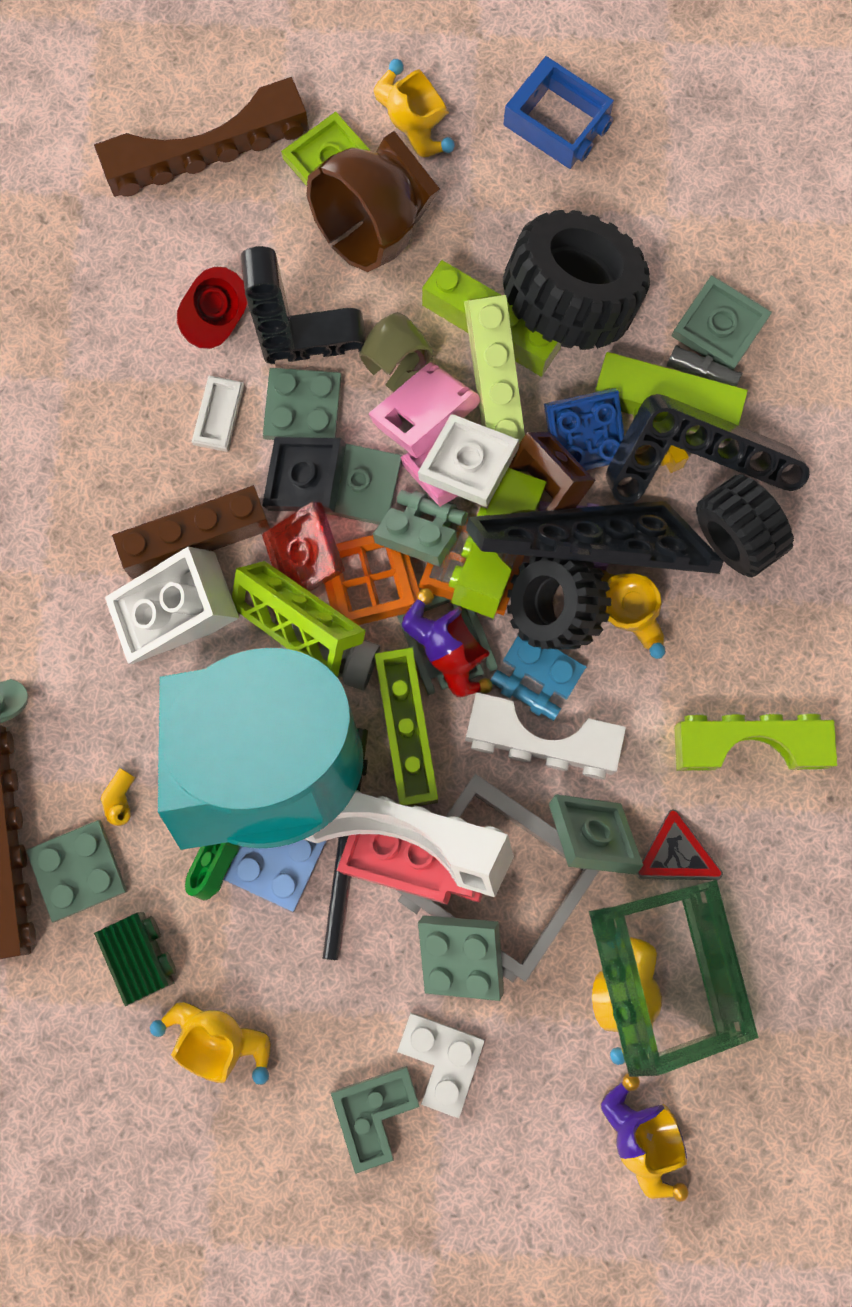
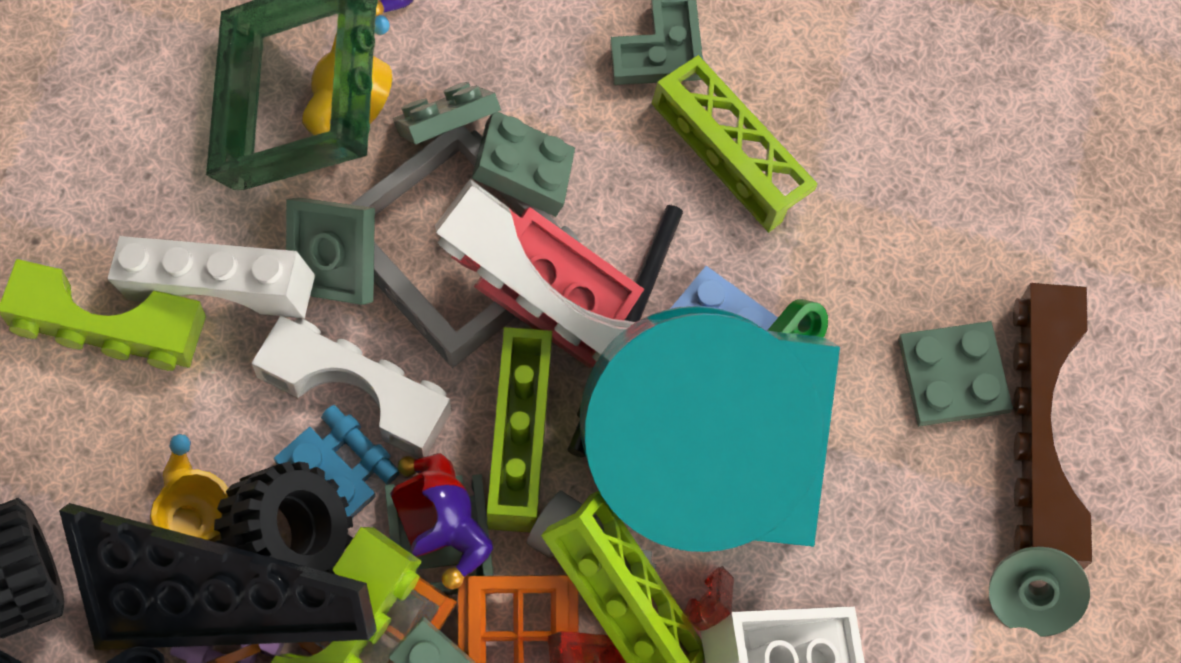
camera: 170 degrees left, 10 degrees down
(114, 798) = (896, 441): yellow arm -> none
(135, 957) = (898, 258): dark green brick -> none
(213, 1043) = (828, 152): yellow piece -> none
(232, 629) = (714, 604): none -> clear red tile
(302, 1019) = (723, 154): none -> lime fence
(453, 1057) = (563, 83): white plate -> none
(538, 986) = (459, 107): none -> sand green plate
(678, 854) = (239, 212): piece -> none
(680, 788) = (258, 278): none -> white arch

